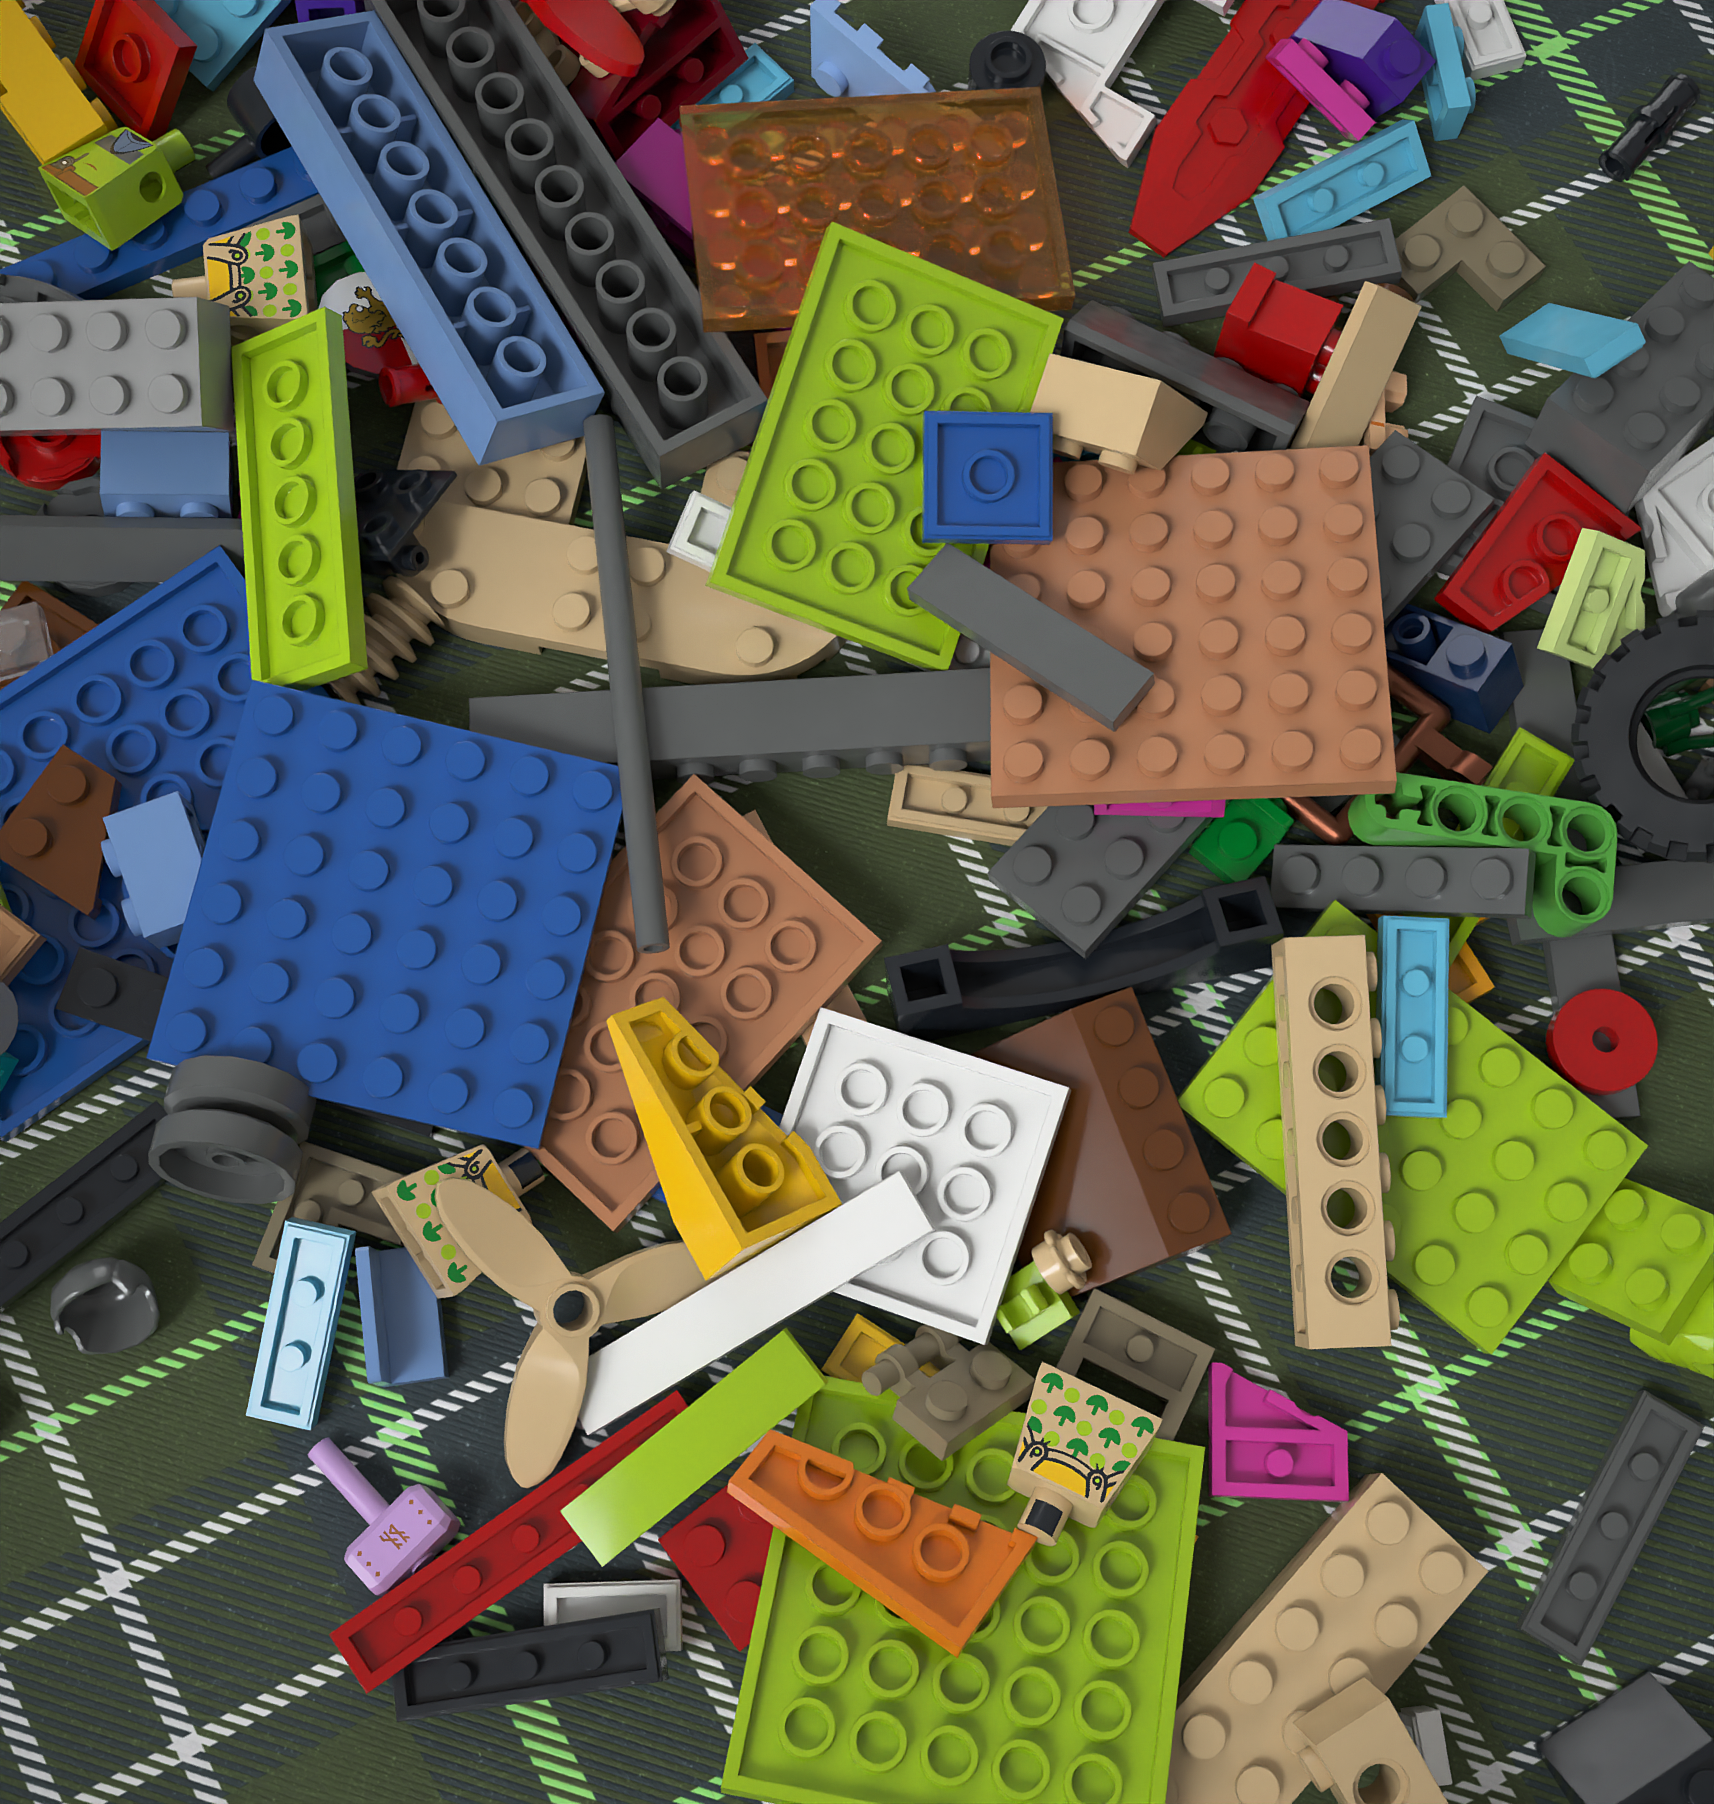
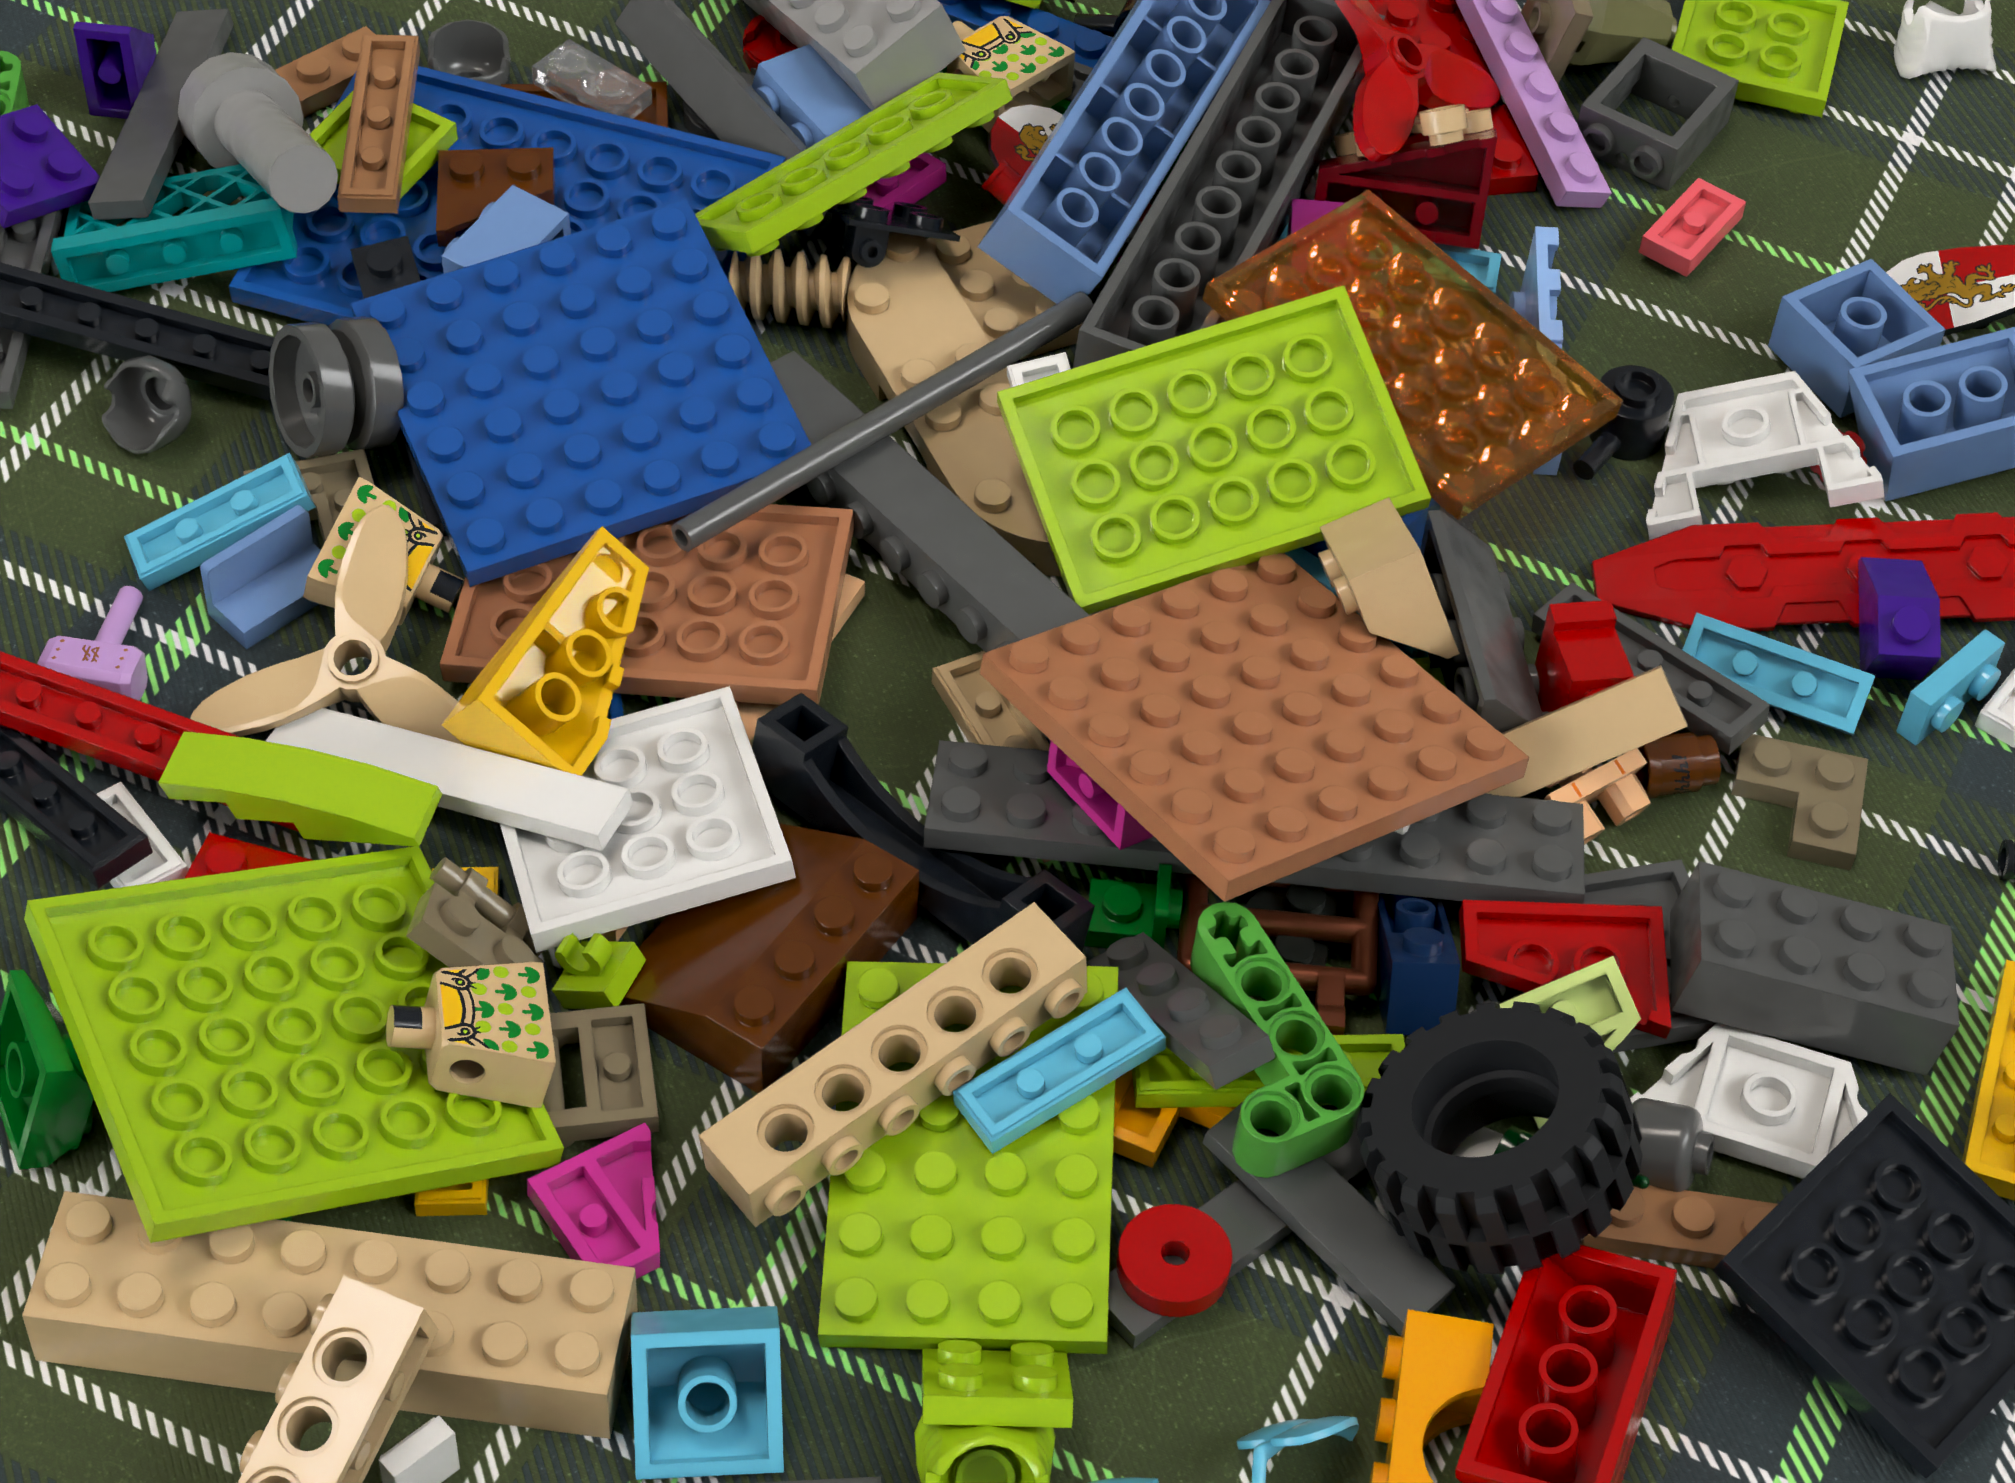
camera: 50 degrees right, 25 degrees down
(906, 1551) = (312, 934): orange wing -> none
(987, 477) = (1248, 517): blue tile -> none
(1031, 637) = (1139, 610): dark grey tile -> none
(1062, 1261) = (645, 956): tan plate -> none
(1340, 104) = (1837, 575): dark pink plate -> none
(1493, 1473) = (707, 1392): none -> medium azure slope
(1573, 339) = (1780, 865): medium azure tile -> none

